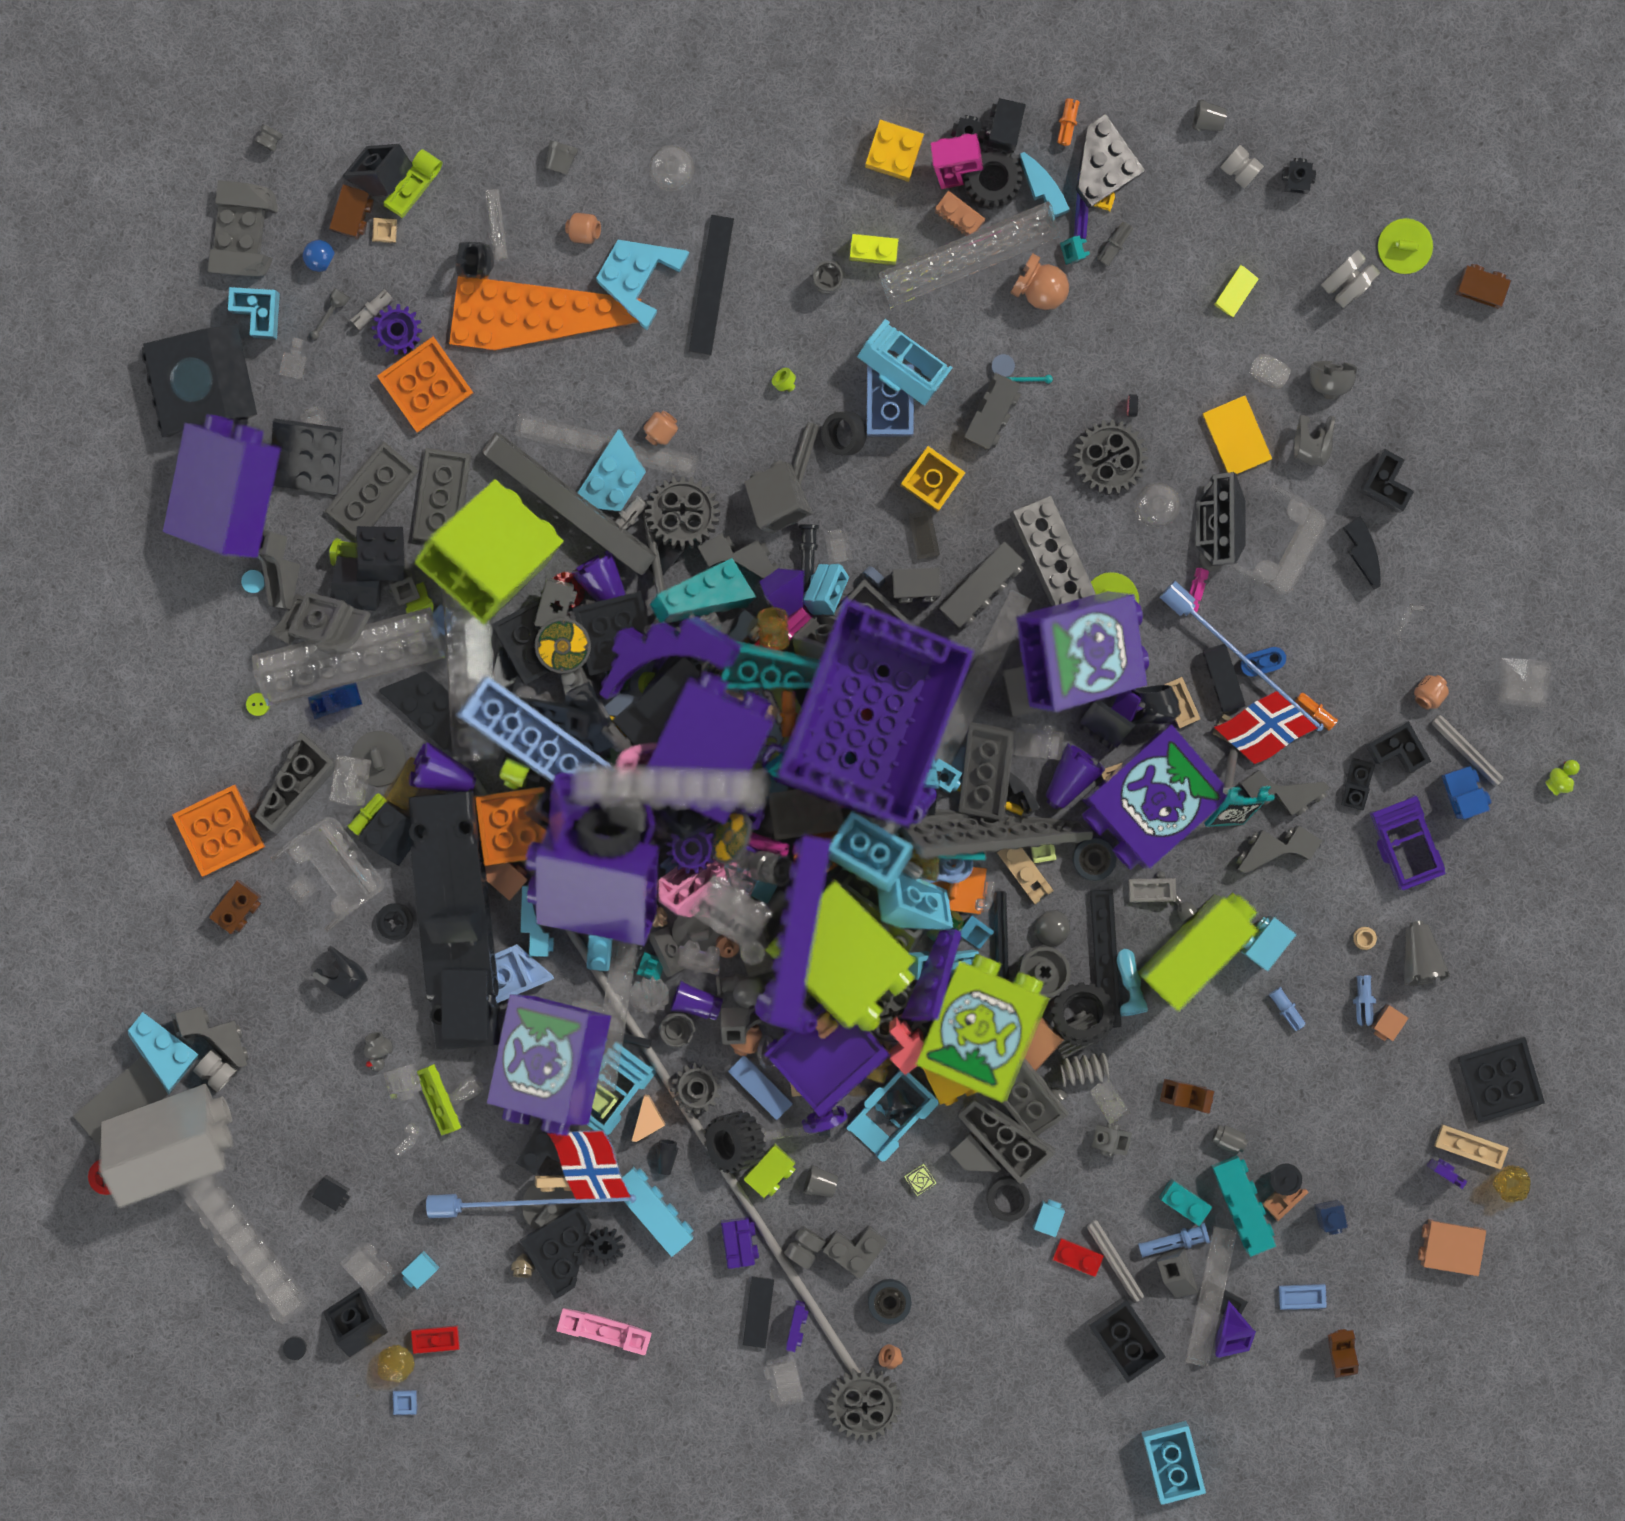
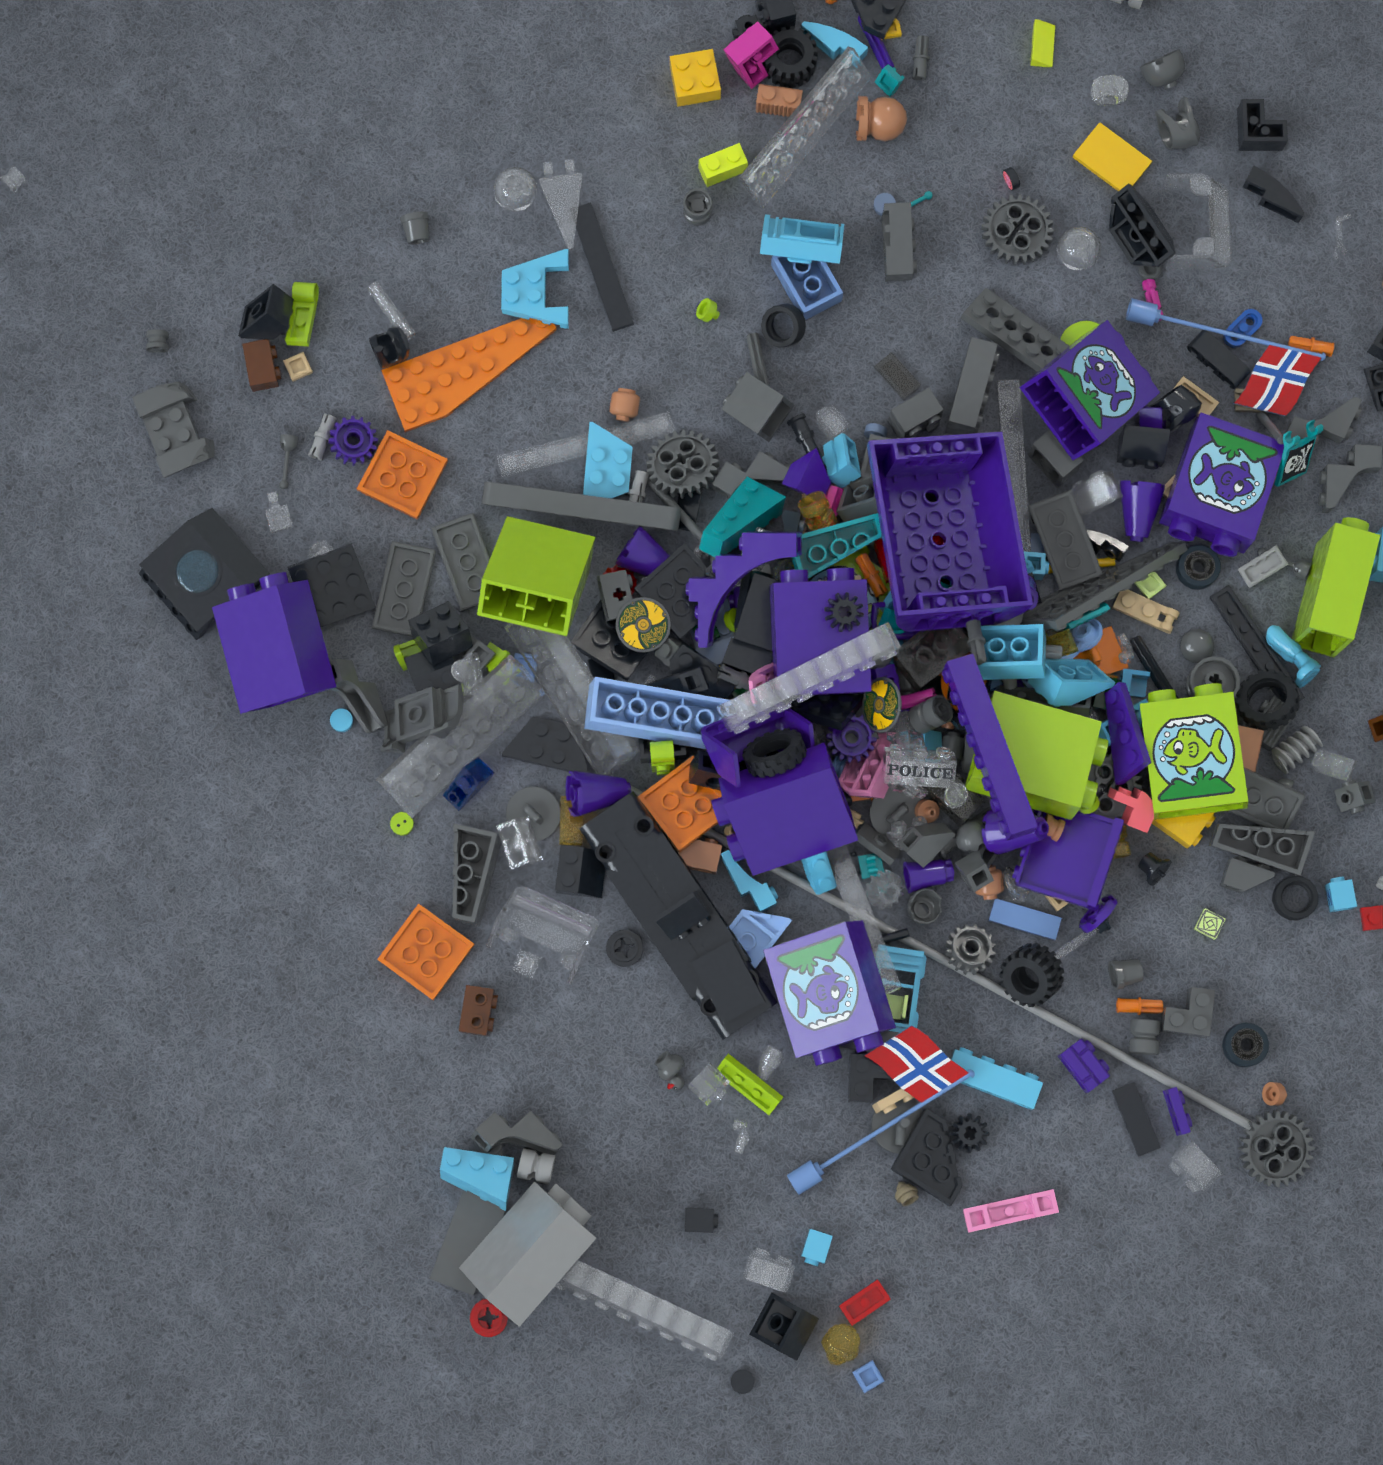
camera: 25 degrees left, 10 degrees down
(261, 305) = (224, 481): medium azure brick -> none
(317, 255) = (252, 415): blue piece -> none
(350, 977) = (612, 1018): black helmet -> none
(367, 814) = (549, 867): lime axle -> none
(384, 604) = (469, 673): none -> clear tile
(583, 228) = (467, 275): nougat head -> none
(625, 815) = (779, 727): dark grey slope -> none
(648, 1119) = (943, 999): light nougat slope -> none
(666, 1156) = (977, 1024): black cone -> none
(707, 975) = (926, 841): none -> dark grey slope
(710, 201) = (563, 198): none -> clear flag
(732, 750) = (843, 620): none -> black gear
(769, 1171) = (1076, 987): lime brick -> none
(817, 1217) = (1139, 1006): none -> orange axle
(843, 829) = (976, 641): none -> dark grey axle
(874, 1136) = (1147, 908): medium azure piece -> none
(932, 479) = (879, 323): yellow brick -> none

